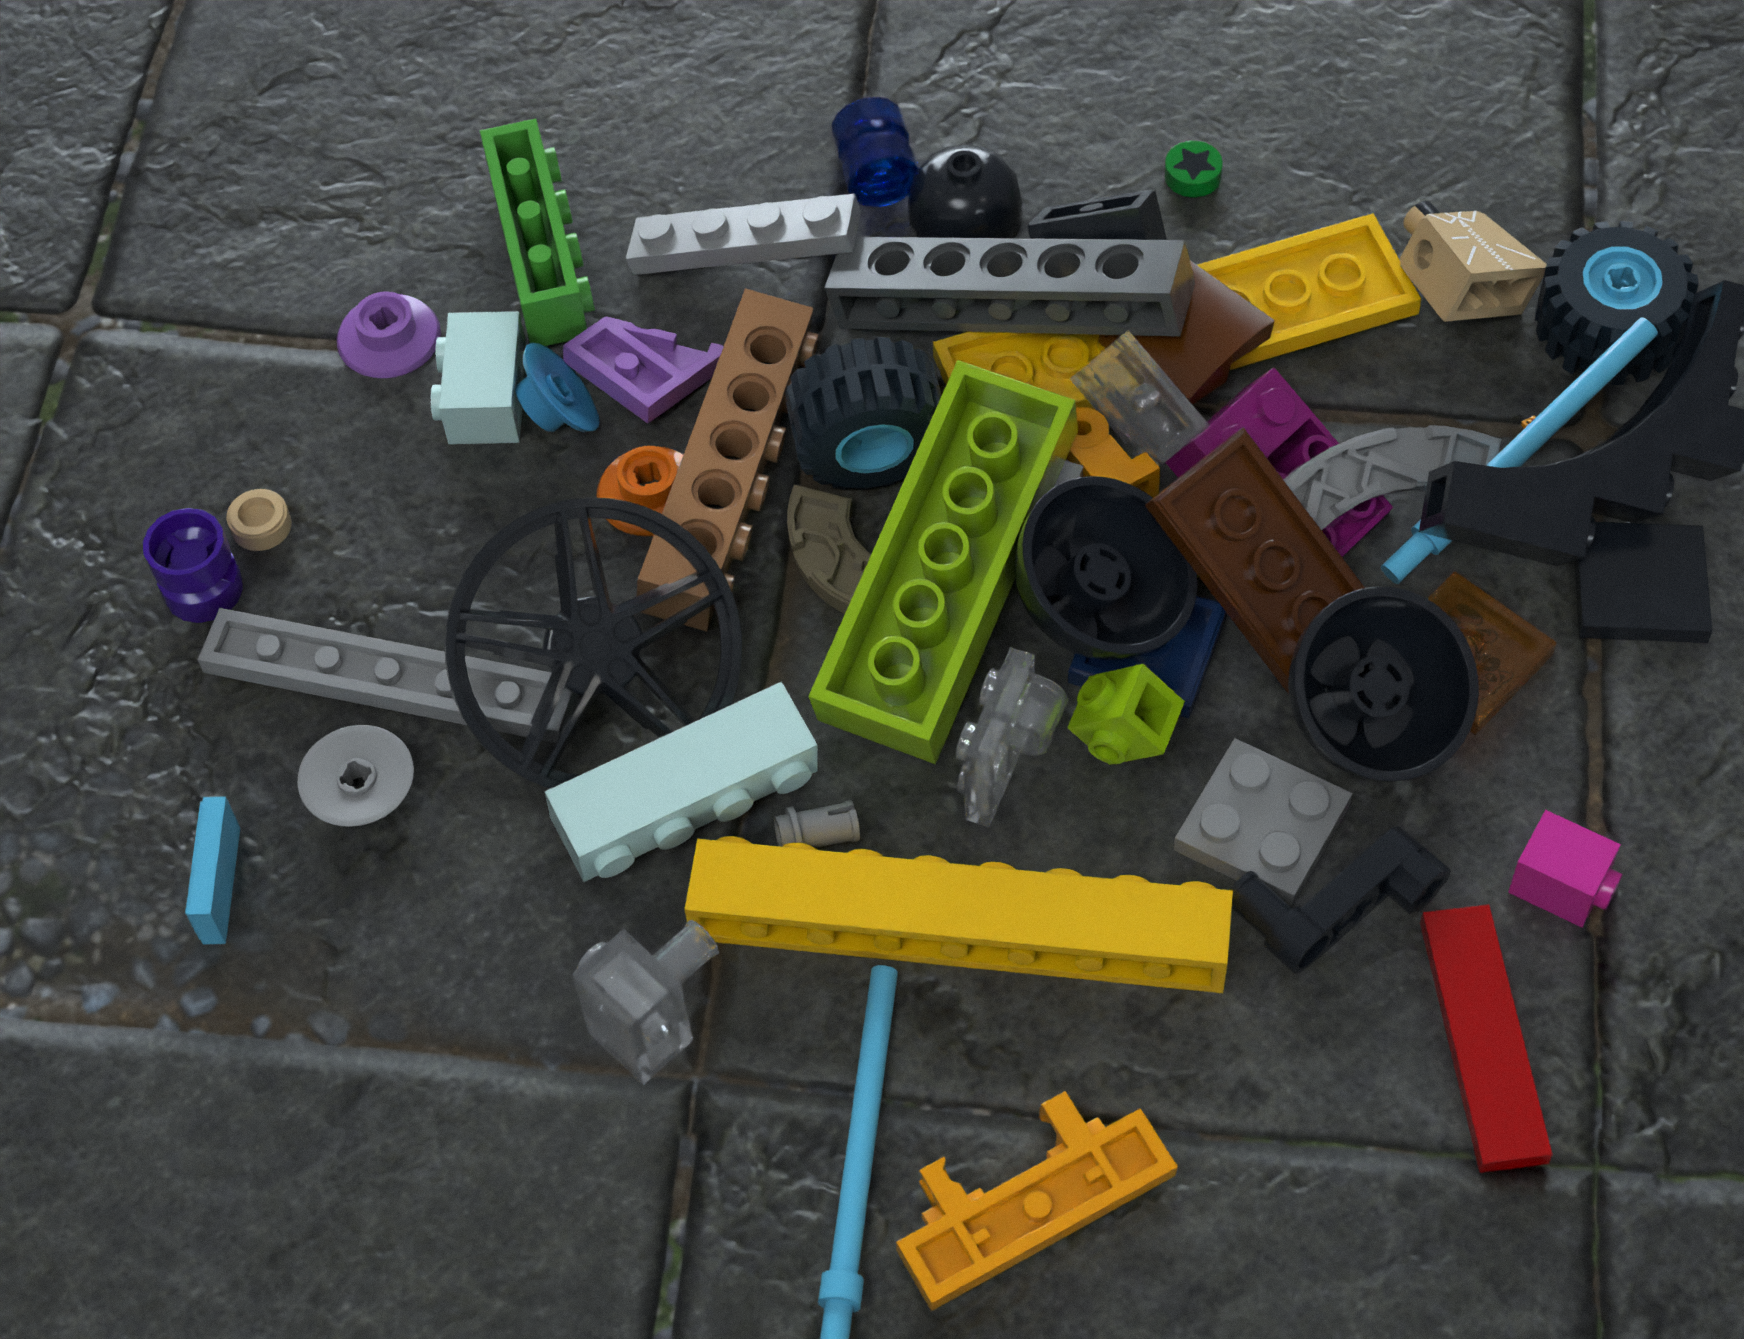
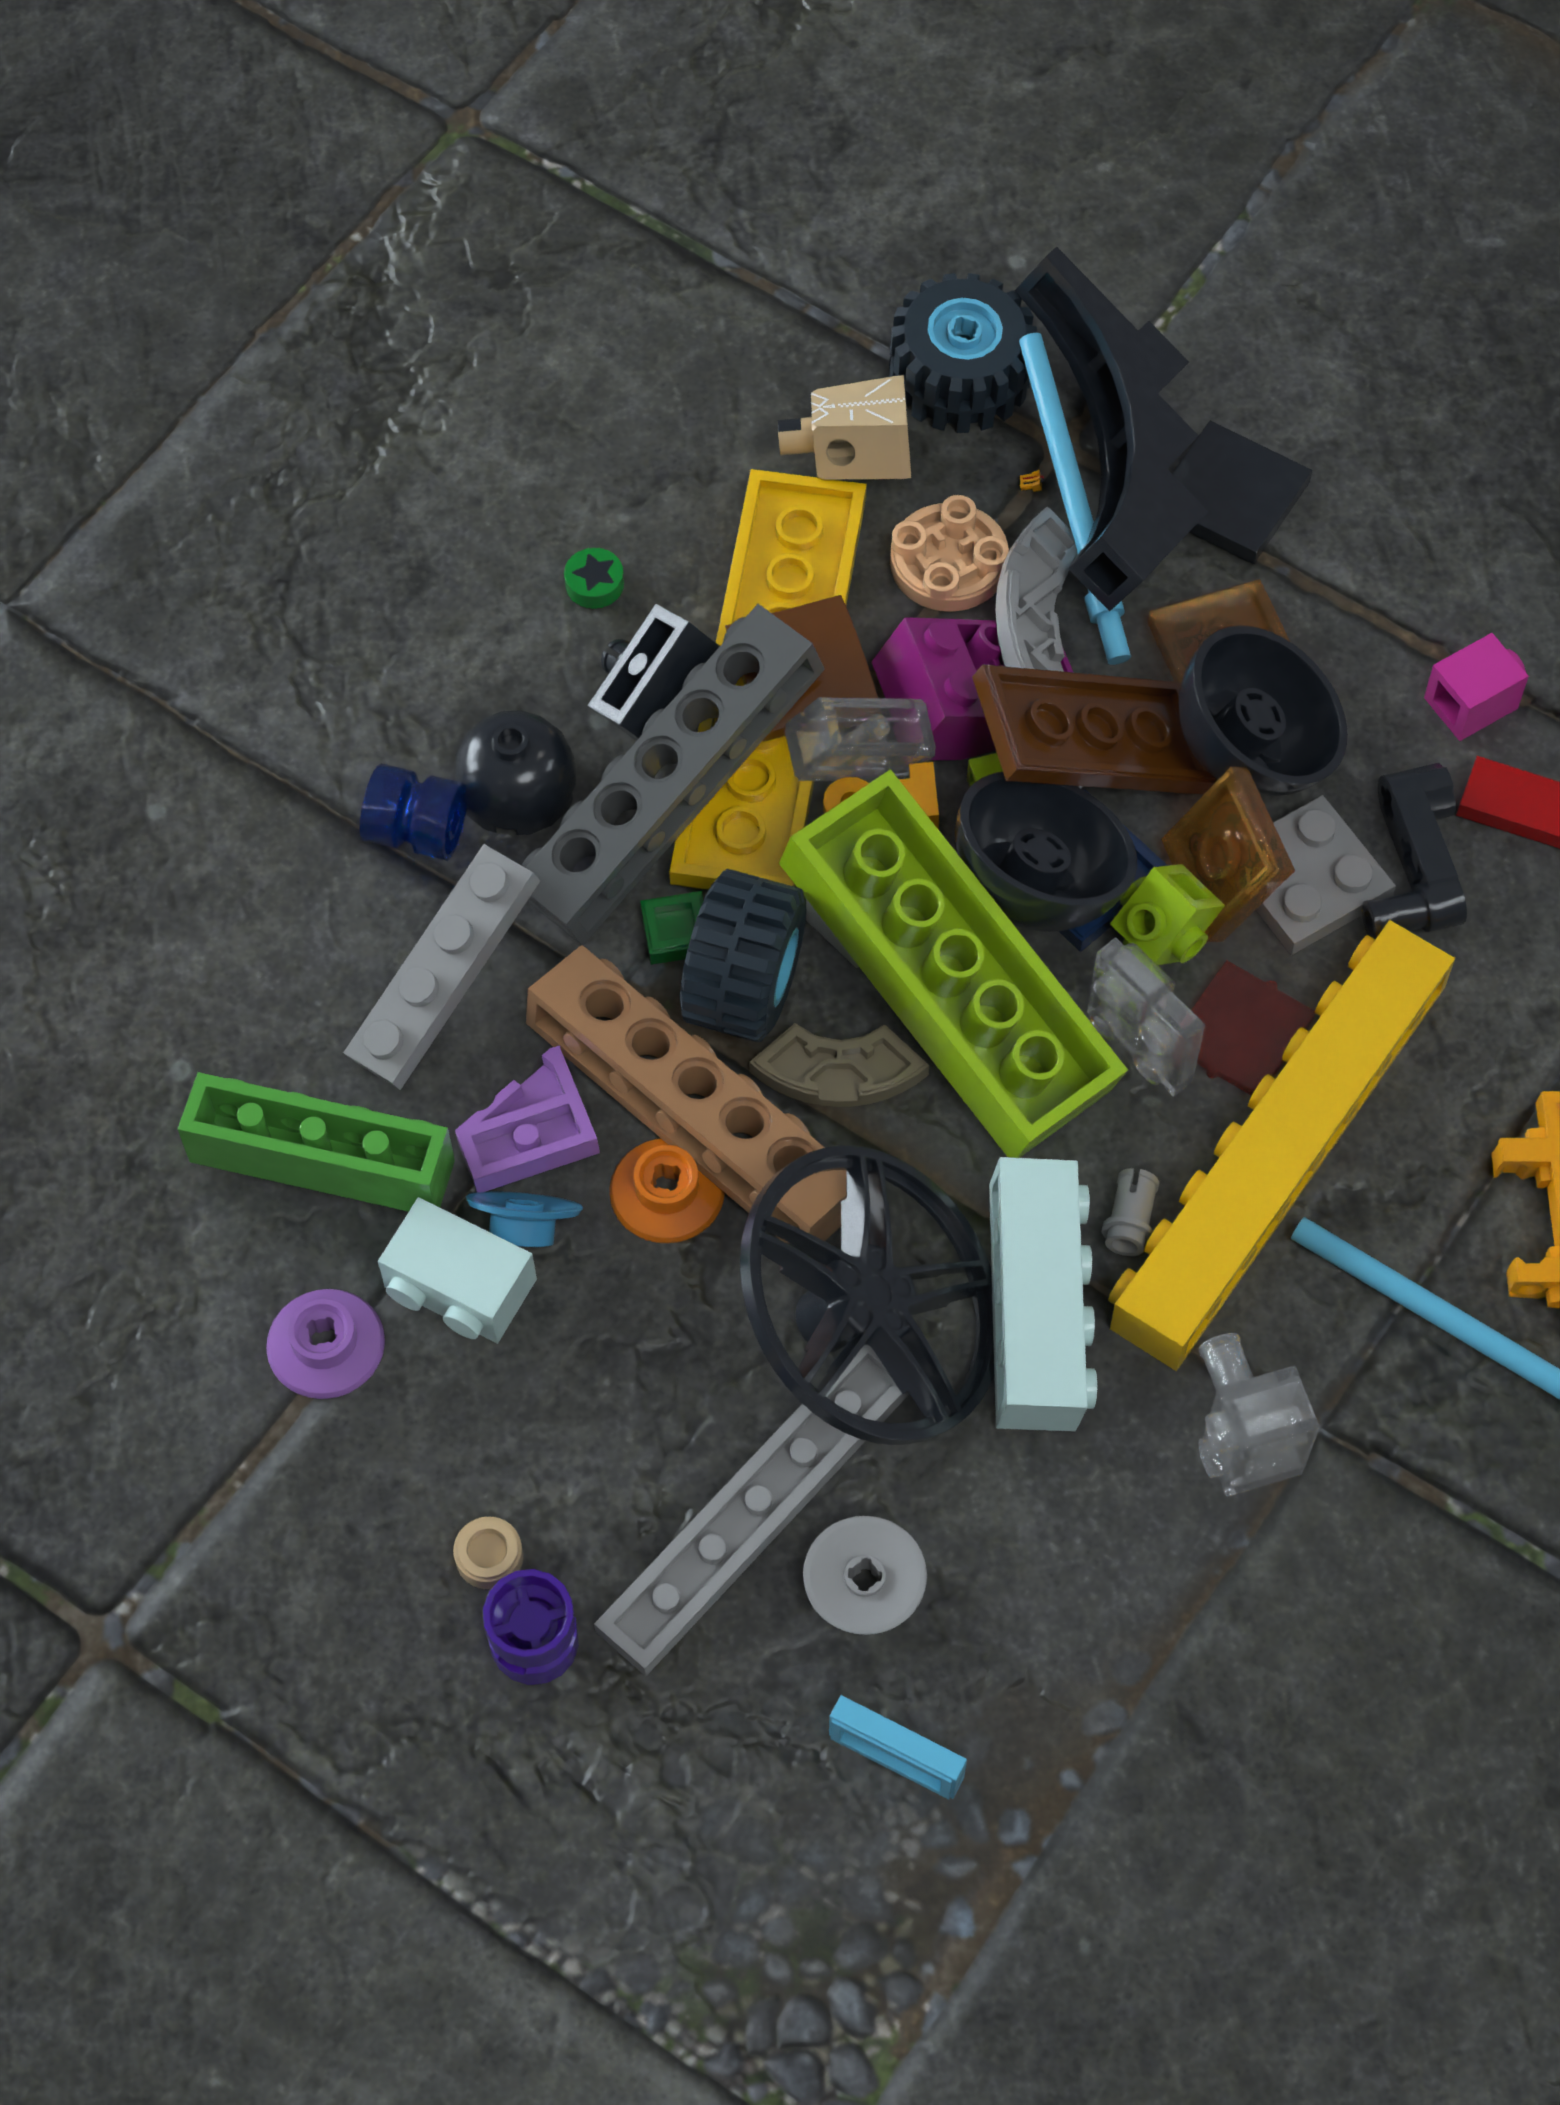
camera: 65 degrees left, 5 degrees up
(1067, 831) = (1246, 1027): none -> clear red piece
(1216, 728) = (1231, 849): none -> clear orange tile
(1402, 390) = (948, 555): none -> light nougat tile

